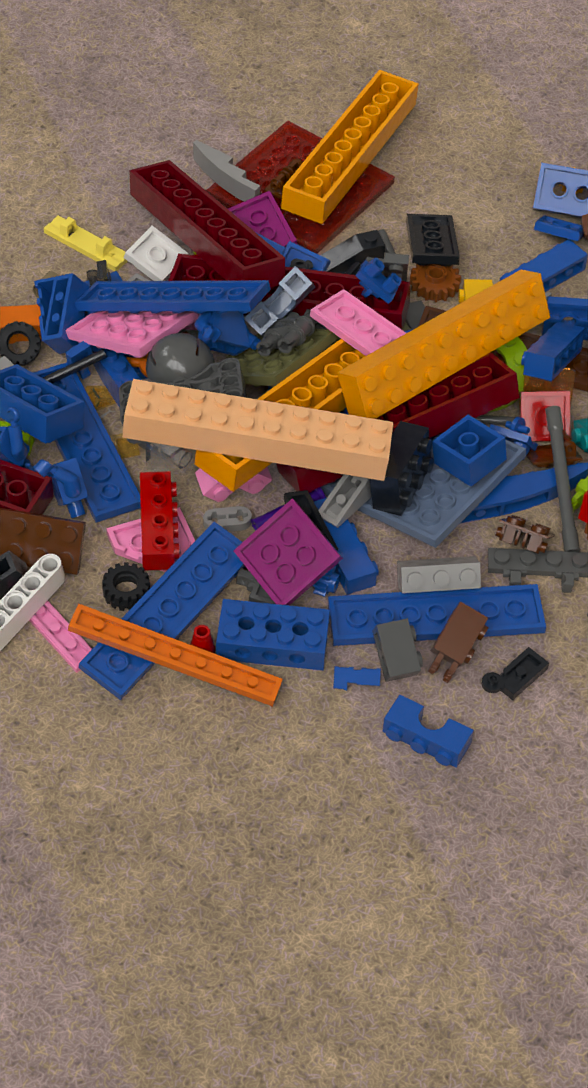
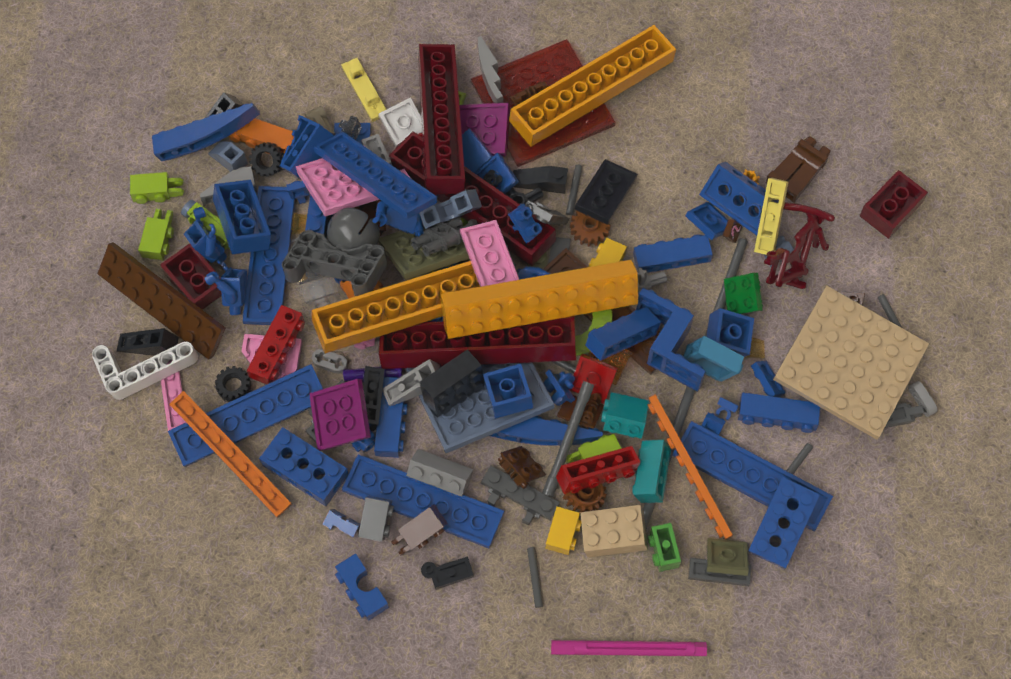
camera: 30 degrees right, 15 degrees up
(76, 366) = (286, 198): black bar -> none
(203, 639) = (254, 451): red cone -> none
(258, 429) = (354, 320): light nougat brick -> none

